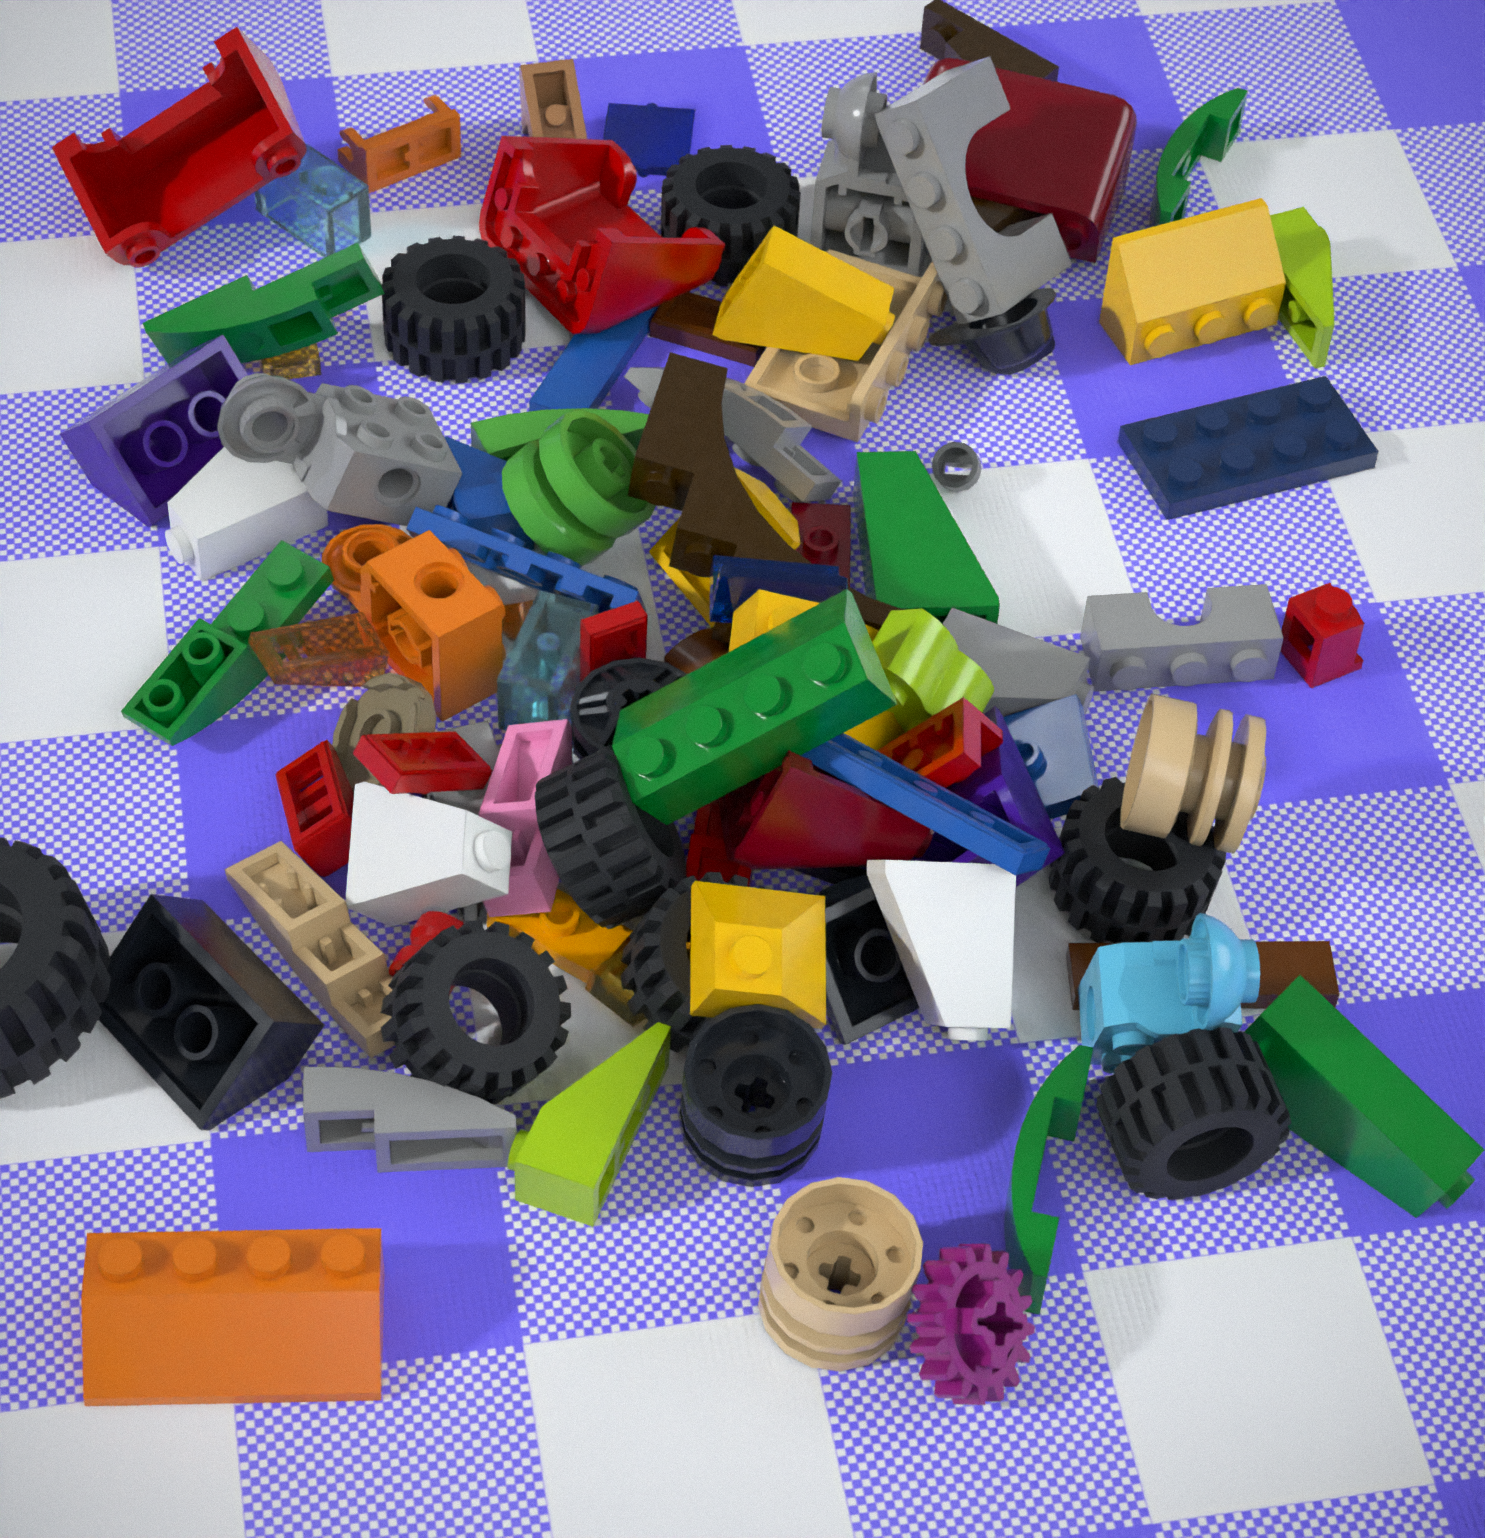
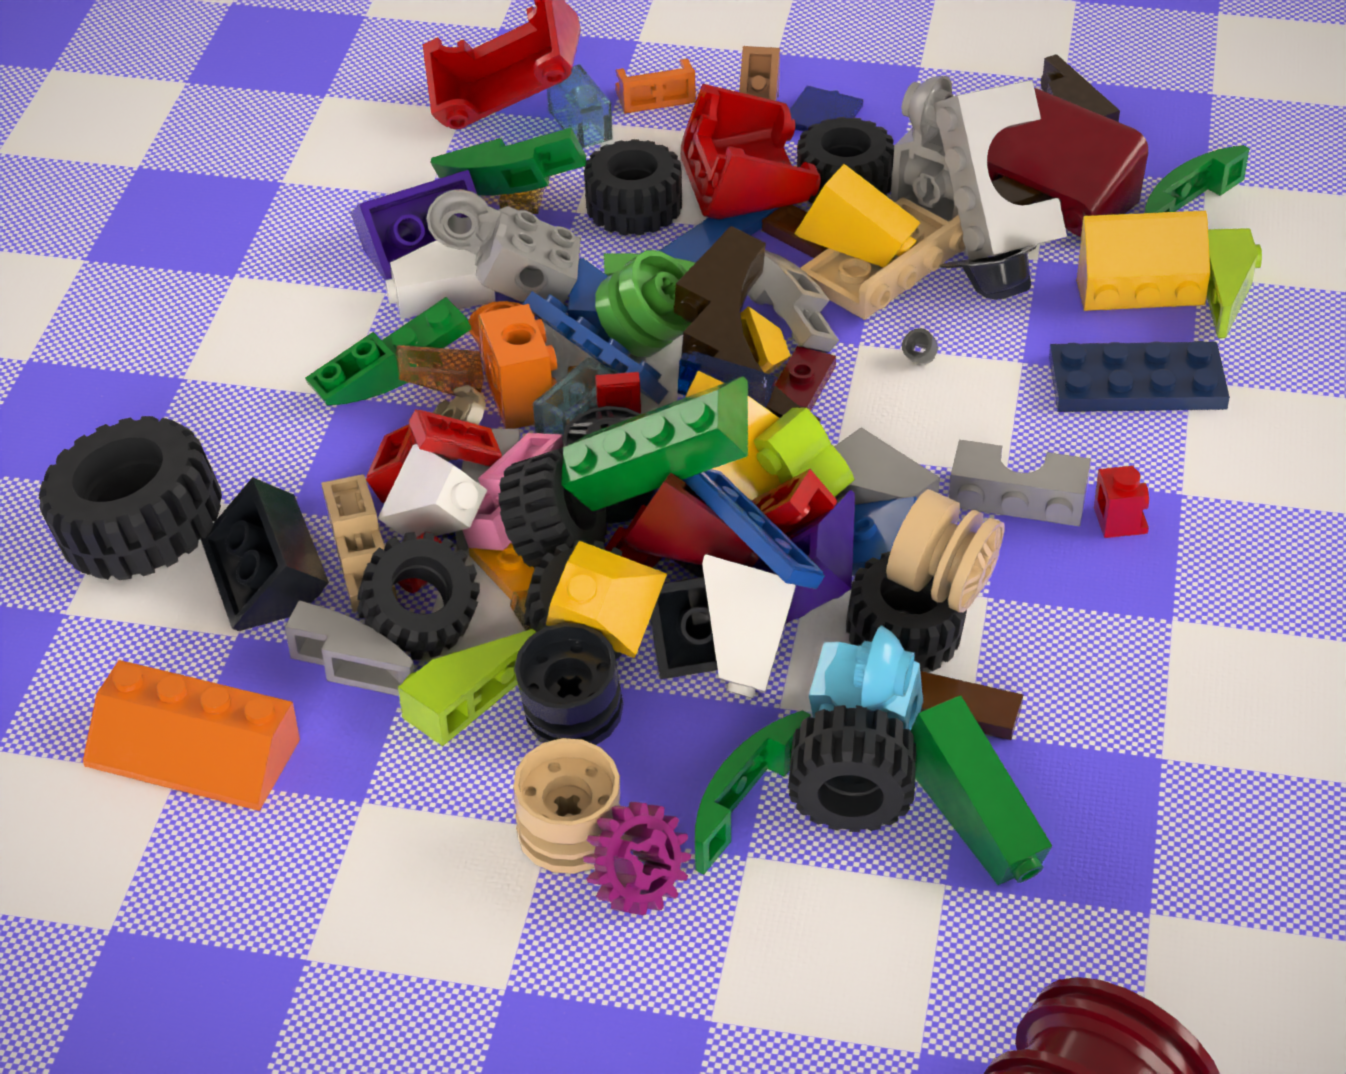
camera: 25 degrees right, 5 degrees down
(912, 543) = (859, 386): green slope -> none

